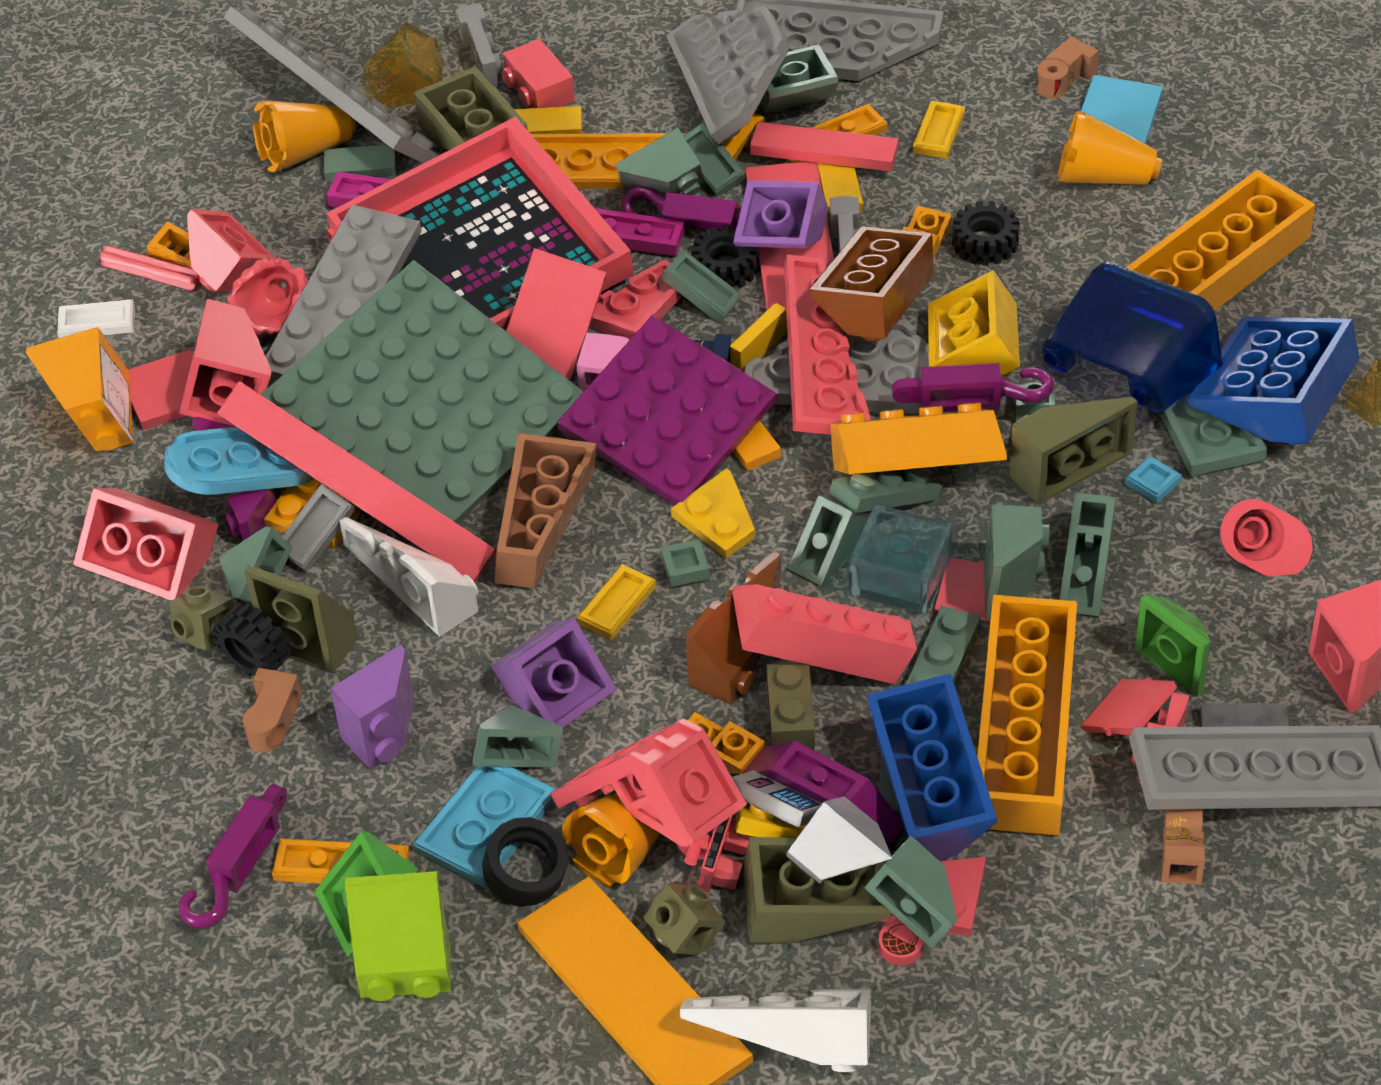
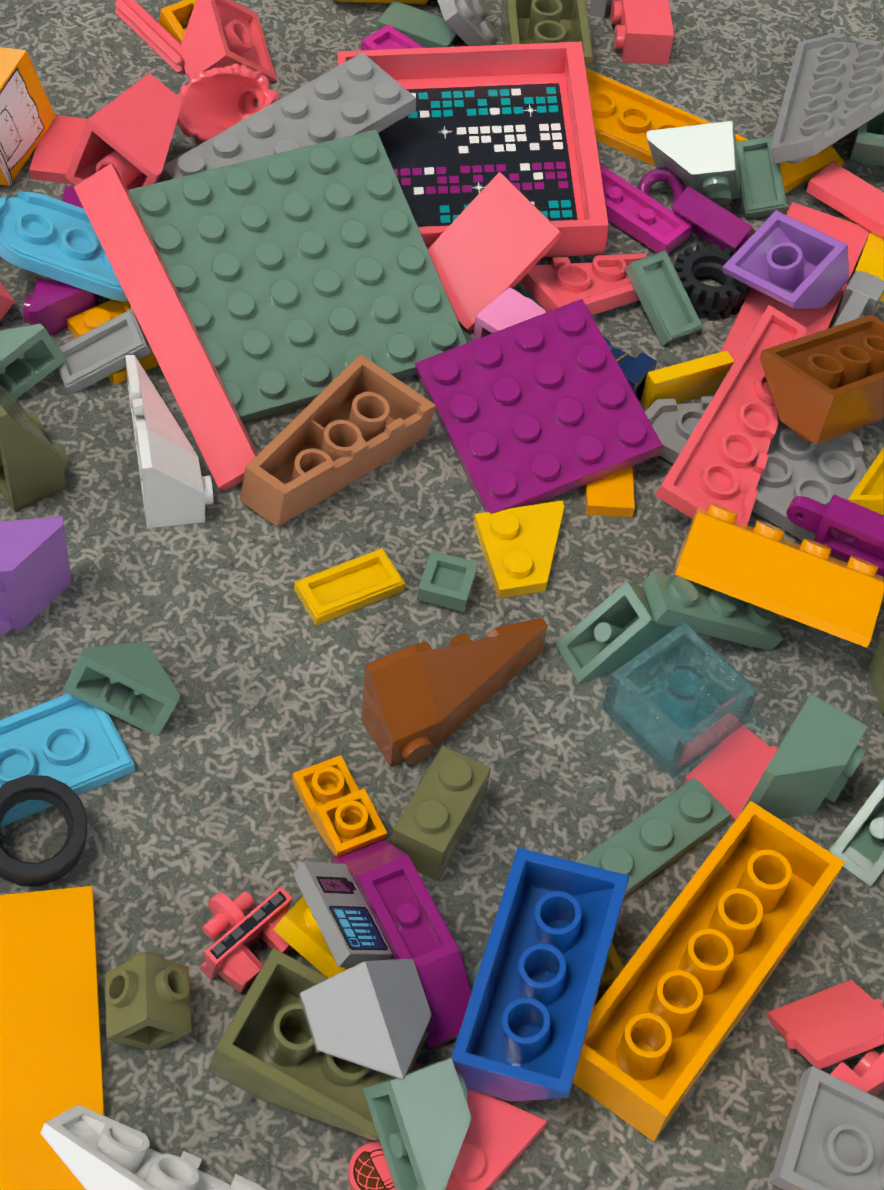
camera: 20 degrees right, 5 degrees up
(110, 317) = (70, 57): white tile -> none
(553, 120) = (628, 69): yellow tile -> none
(555, 674) = (222, 635): medium lavender slope -> none
(607, 840) = (162, 849): light orange cone -> none
(665, 781) = (224, 831): coral bracket -> none
(823, 633) = (526, 743): coral slope -> none

